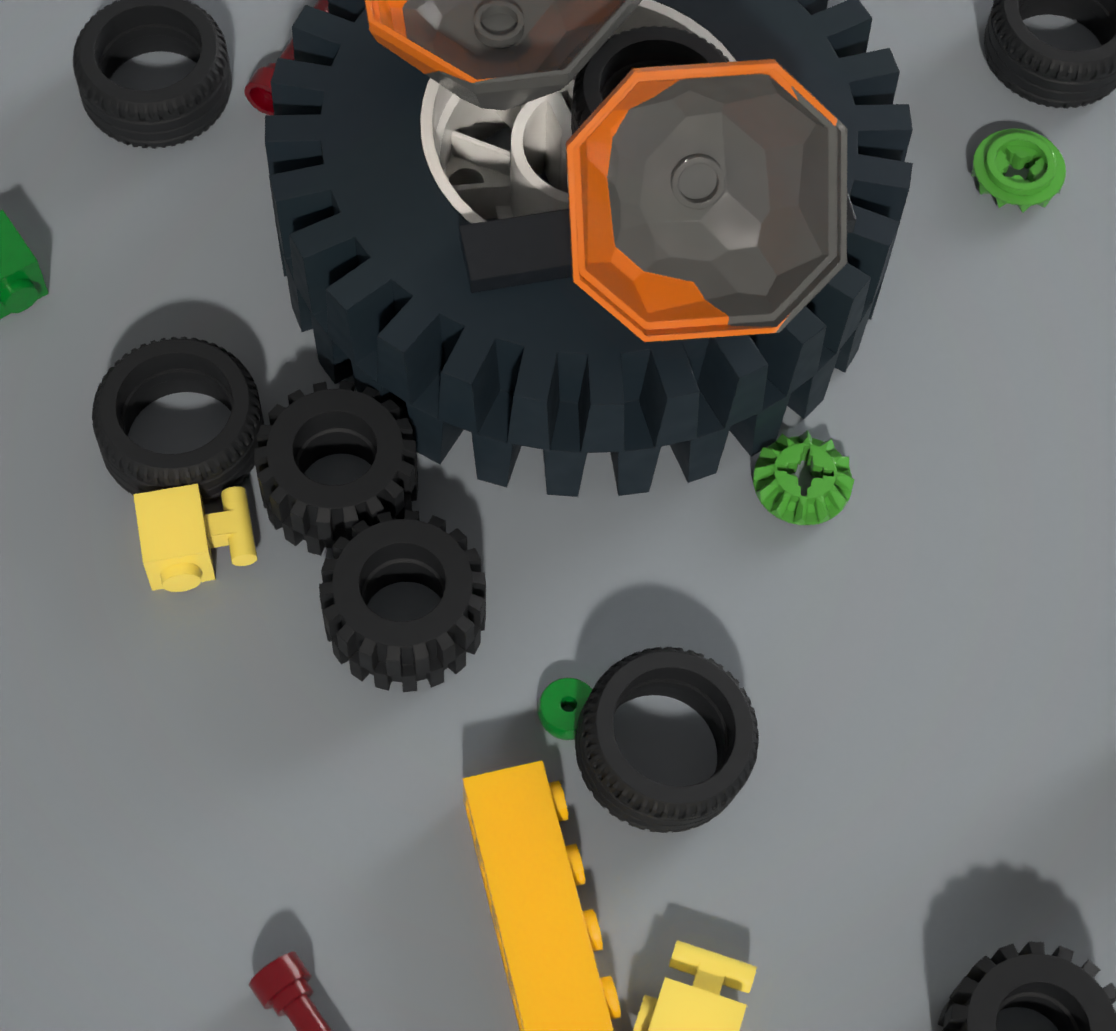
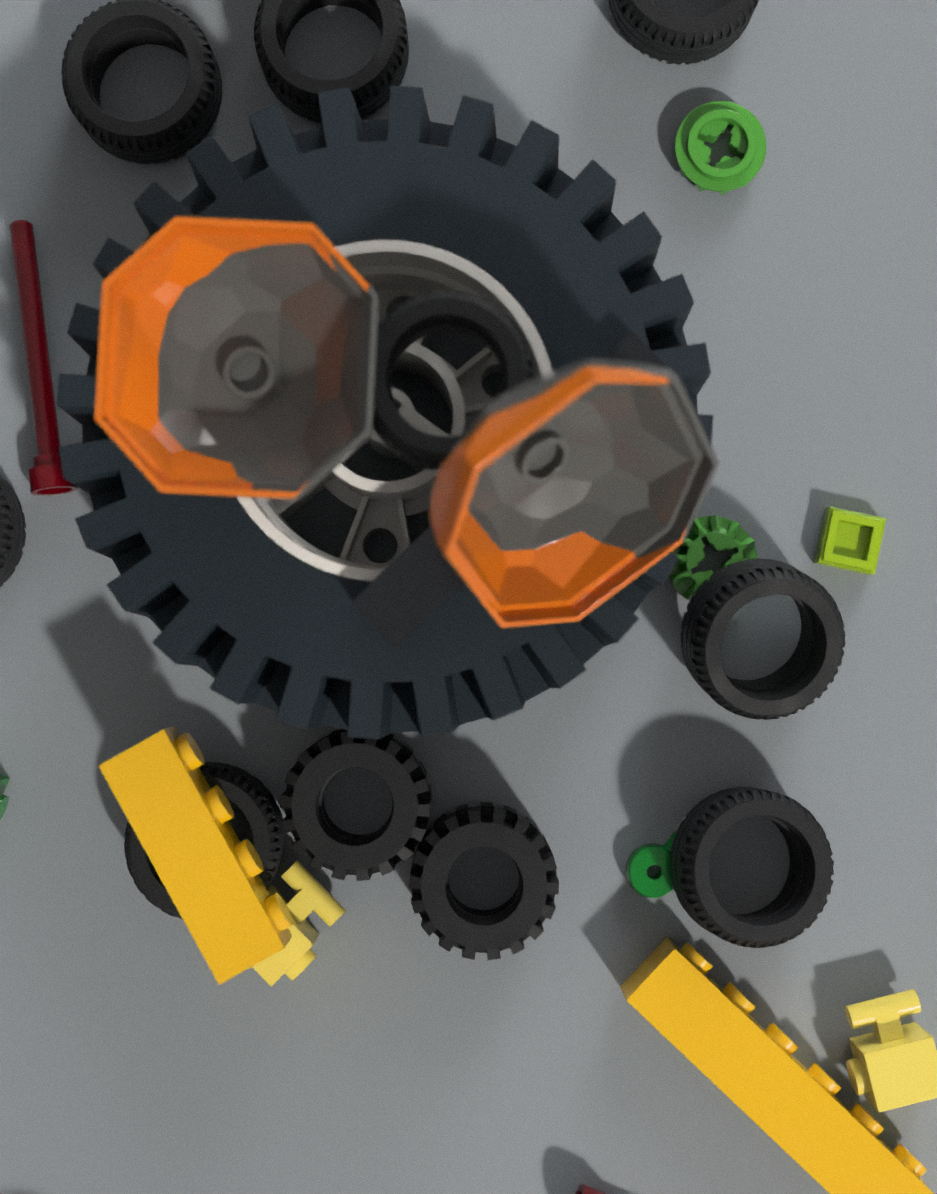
camera: 30 degrees left, 25 degrees up
(171, 393) = (198, 852): none -> yellow brick
(846, 491) = (805, 672): none -> black tyre
(946, 537) = (850, 540): none -> lime tile

